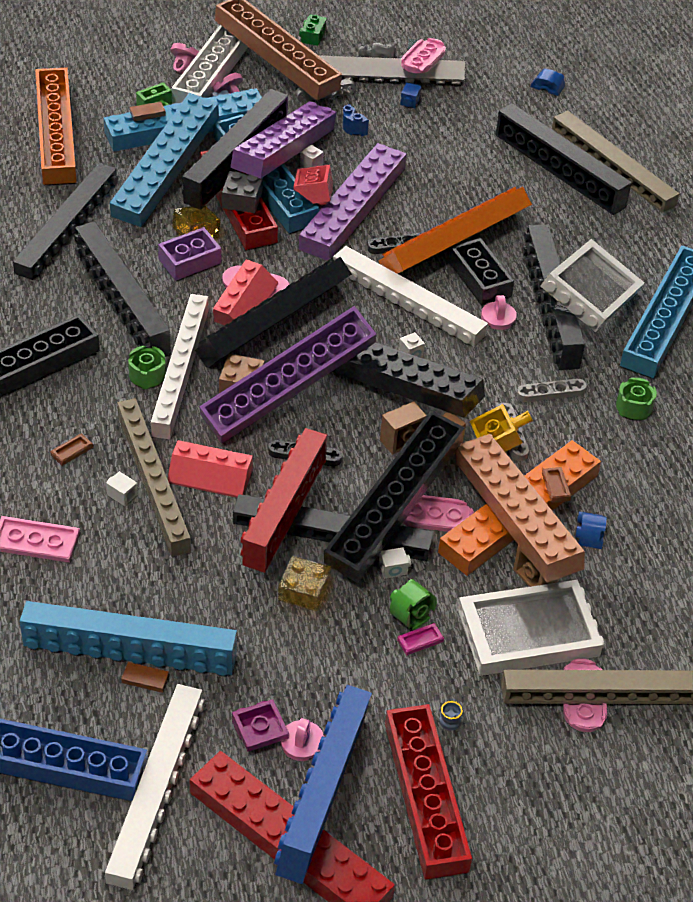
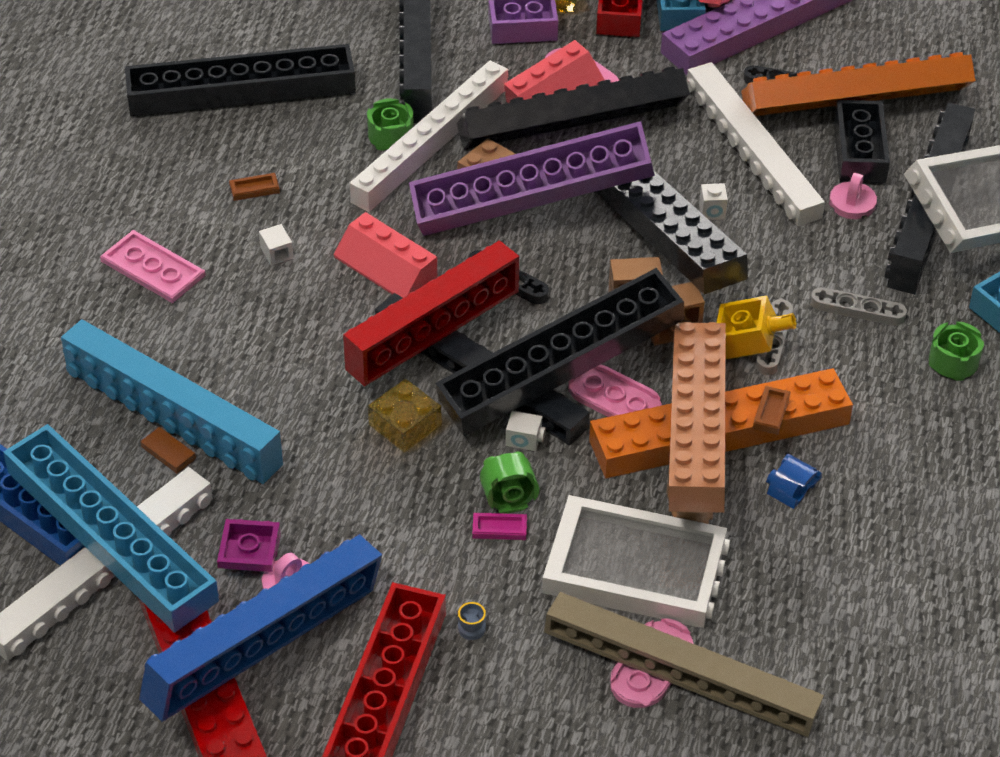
camera: 30 degrees right, 0 degrees up
(154, 478) = (317, 245): dark tan brick -> none
(162, 752) = (112, 528): none -> dark azure brick

